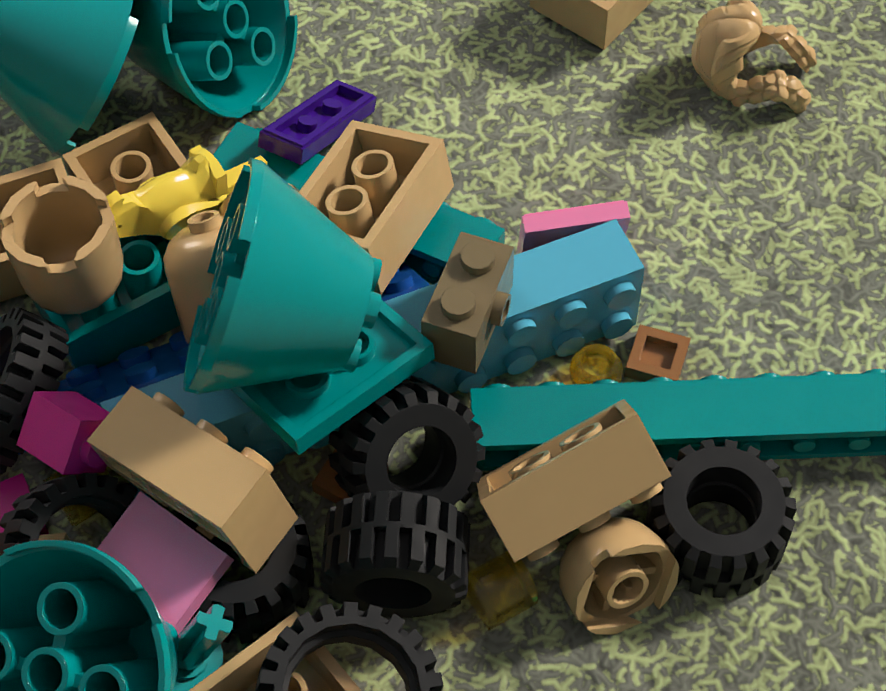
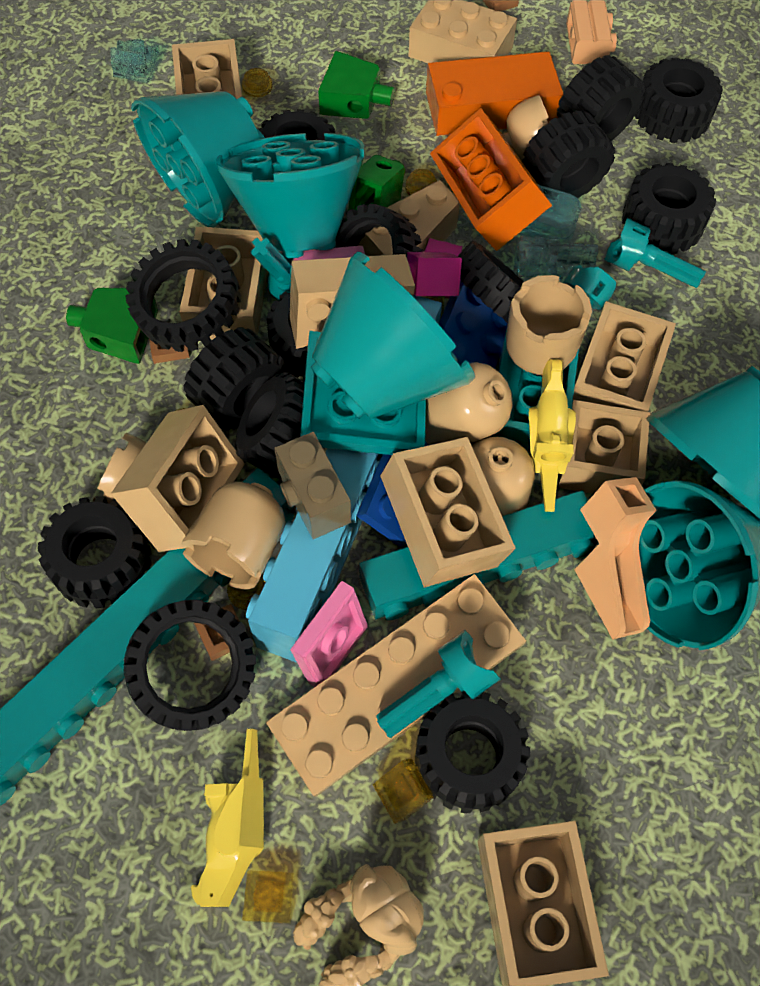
camera: 130 degrees right, 5 degrees up
(229, 97) = (613, 568): none -> light nougat arch
(316, 122) = (565, 582): dark purple tile -> none
(505, 95) = (458, 672): none -> teal piece
(547, 112) = (498, 726): none -> black tyre
(547, 169) = (336, 721): none -> tan plate
(575, 353) = (236, 533): none -> tan cylinder
(628, 110) = (403, 791): none -> clear yellow plate
(721, 355) = (240, 677): none -> black tyre
(799, 193) = (233, 831): none -> light yellow animal
(804, 141) = (268, 897): none -> clear yellow plate

